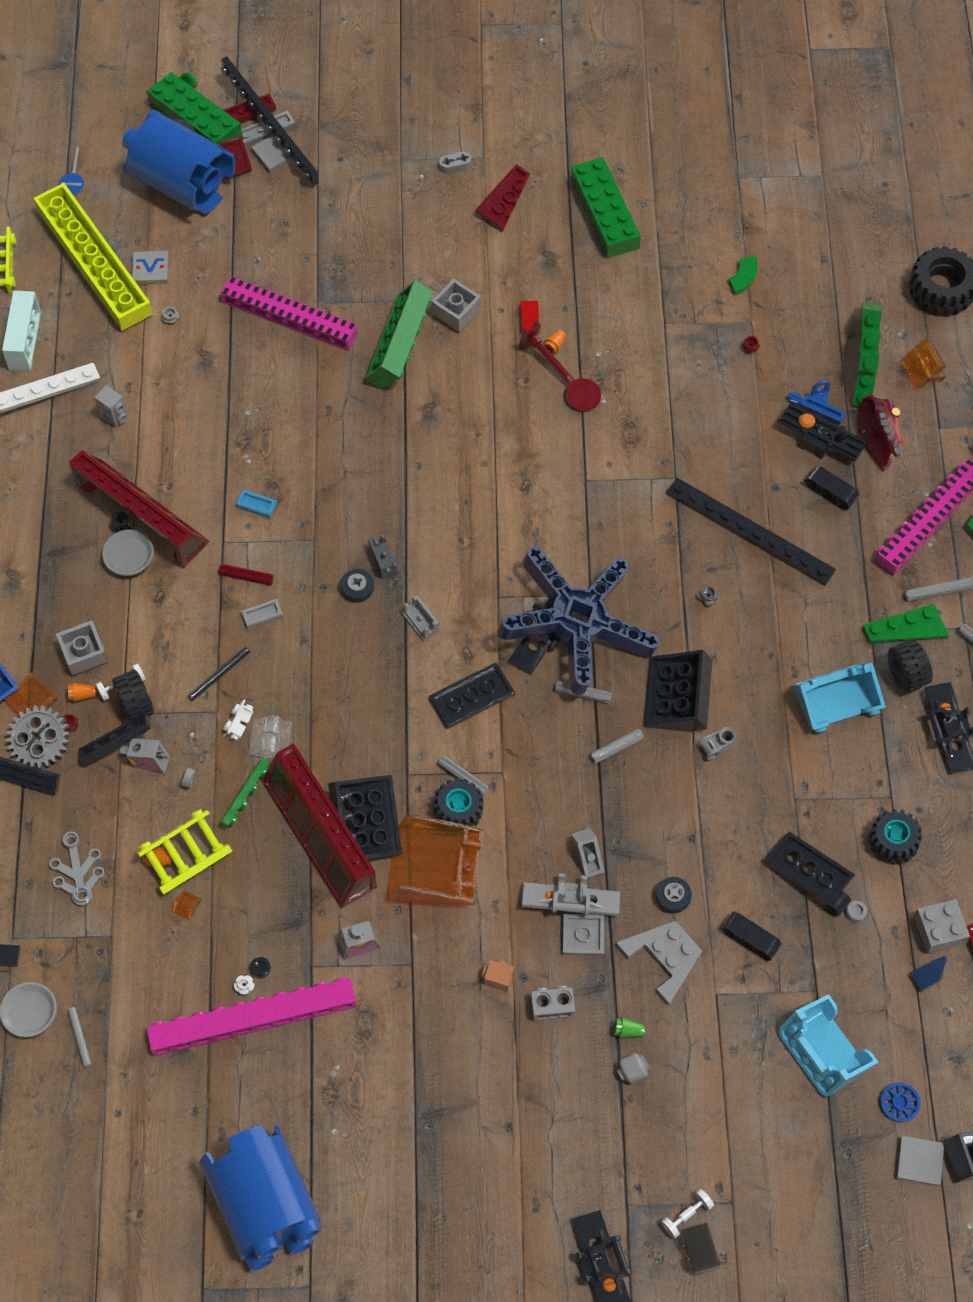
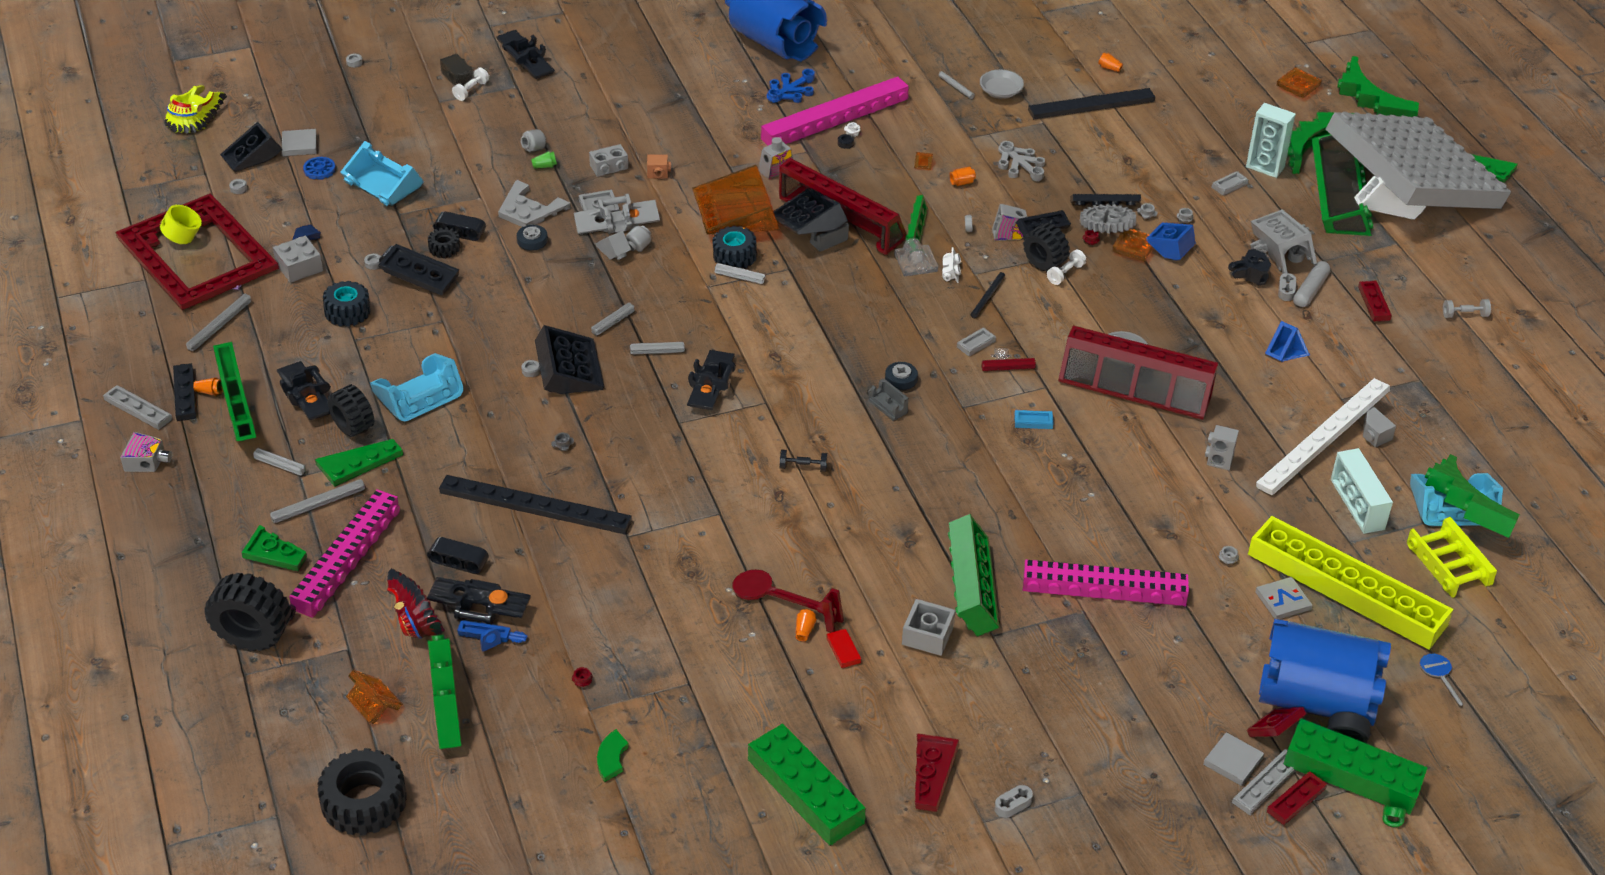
camera: 160 degrees right, 20 degrees down
(80, 692) = (1097, 255): orange cone -> none
(82, 647) = (1114, 275): light grey brick -> none
(184, 871) = (941, 174): neon yellow fence -> none
(243, 585) = (1001, 353): none -> clear plate
(272, 125) = (1262, 775): black plate -> none
(286, 1091) = (776, 95): none -> blue plant
(420, 618) = (827, 365): light grey hinge -> none
(471, 695) = (757, 327): black tile -> none
(474, 500) = (803, 460): none -> black wheel
(557, 855) = (638, 238): none -> light grey head
(571, 630) = (683, 389): dark blue beam -> none
(715, 745) = (520, 335): light grey piece -> none
(717, 701) = (530, 368): none -> light grey tile
(776, 902) = (444, 242): none -> black tyre

